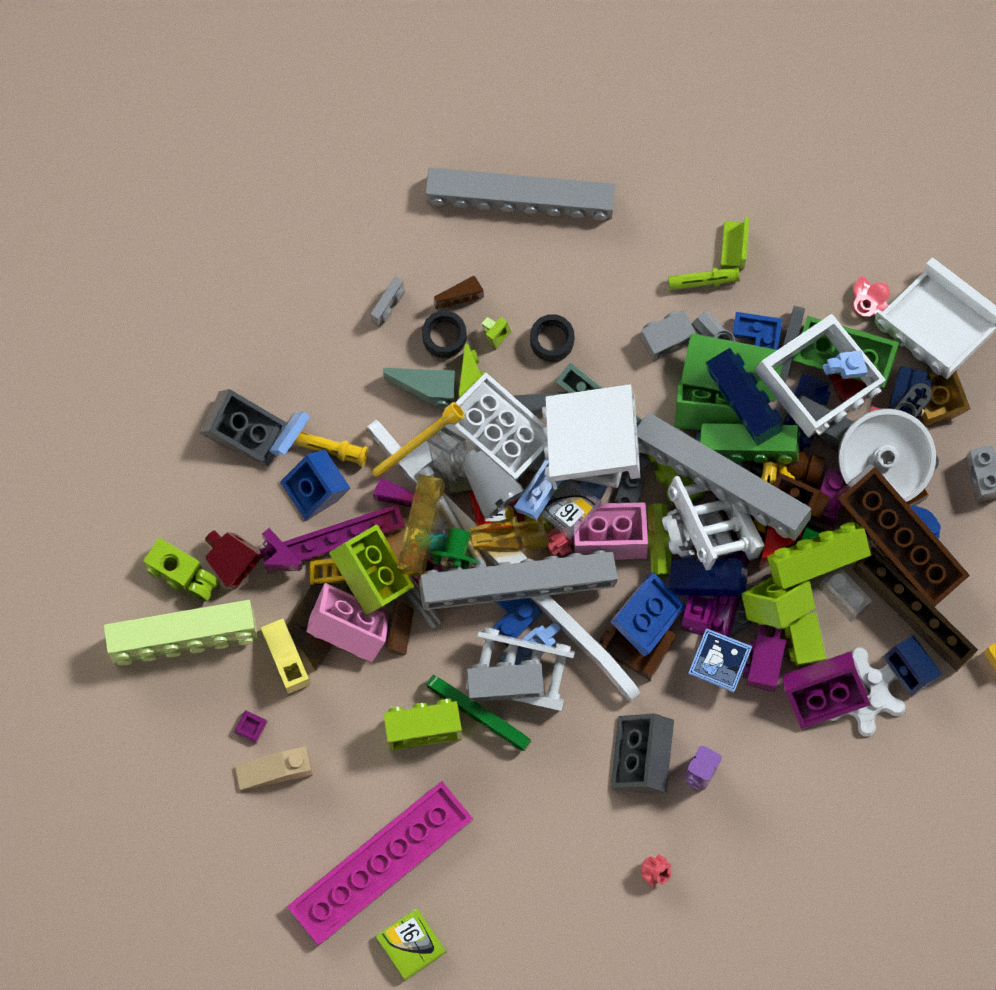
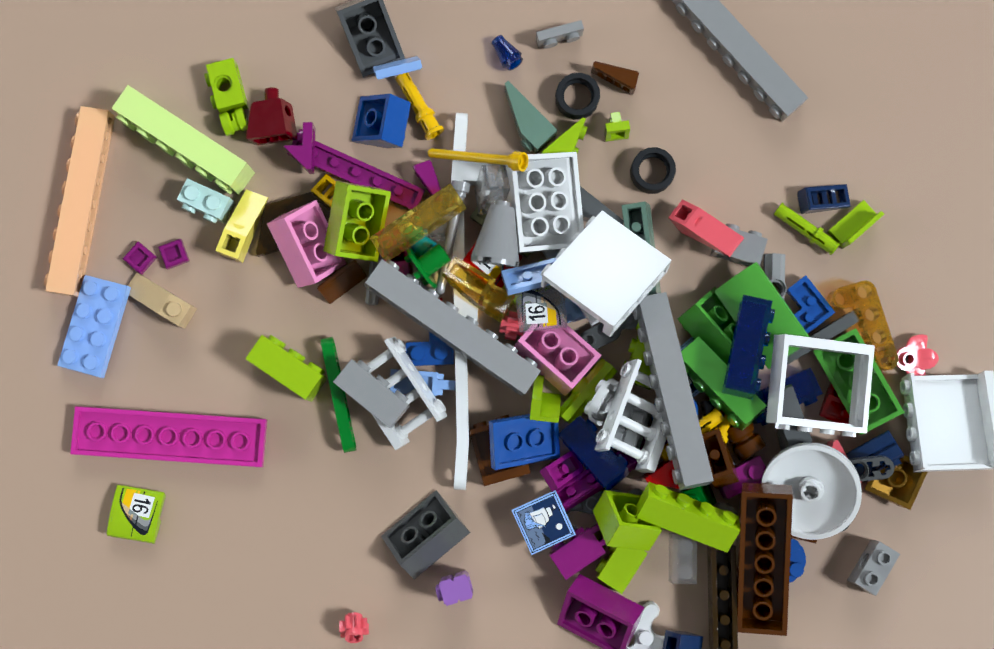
camera: 40 degrees right, 10 degrees up
(142, 753) = (80, 201): none -> light nougat brick
(227, 753) = (140, 258): none -> magenta tile
(239, 663) = (206, 201): none -> light aqua brick
(242, 835) = (94, 326): none -> light blue plate
(362, 350) = (507, 53): none -> clear blue cone
(631, 343) = (705, 228): none -> coral slope
(638, 577) = (544, 405): none -> lime panel
(688, 259) = (809, 202): none -> dark blue slope
(815, 308) = (868, 327): none -> clear yellow beam
(848, 363) = (848, 396): light blue plate -> none

